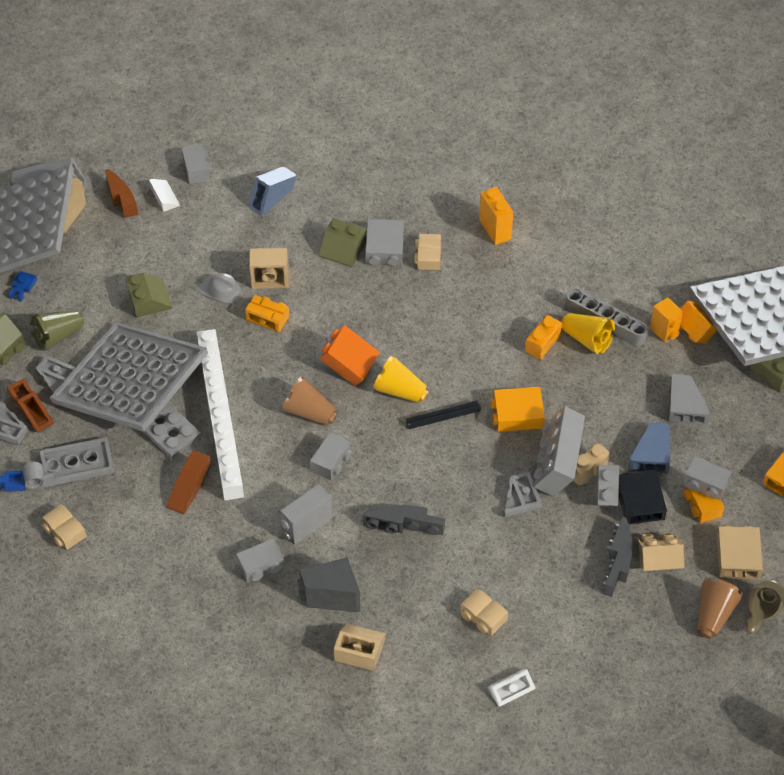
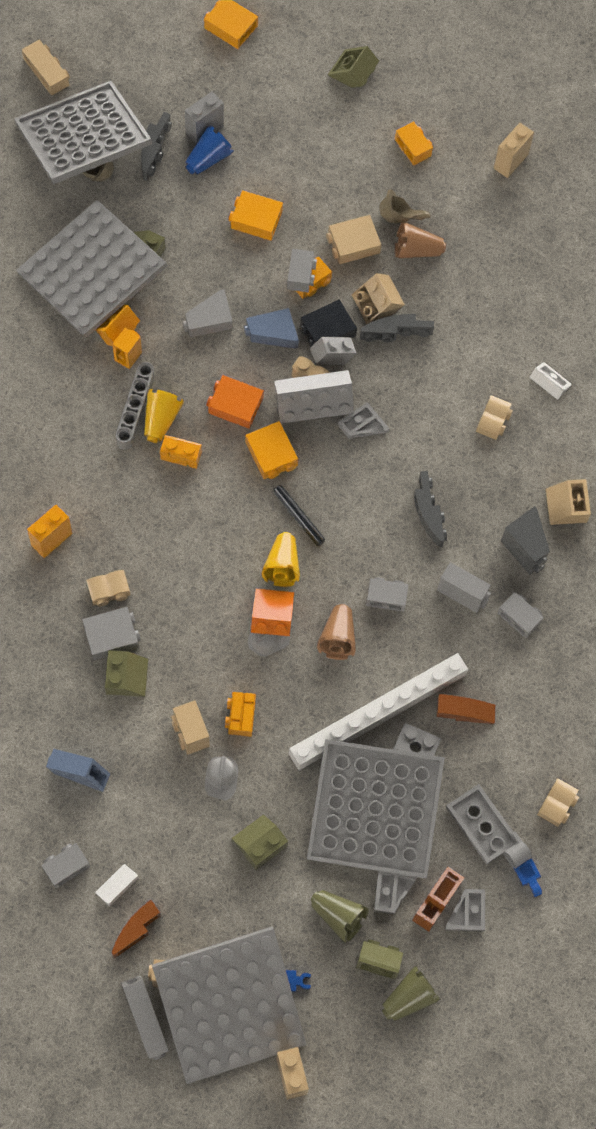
camera: 115 degrees left, 15 degrees up
(582, 393) = (235, 401): none -> orange brick

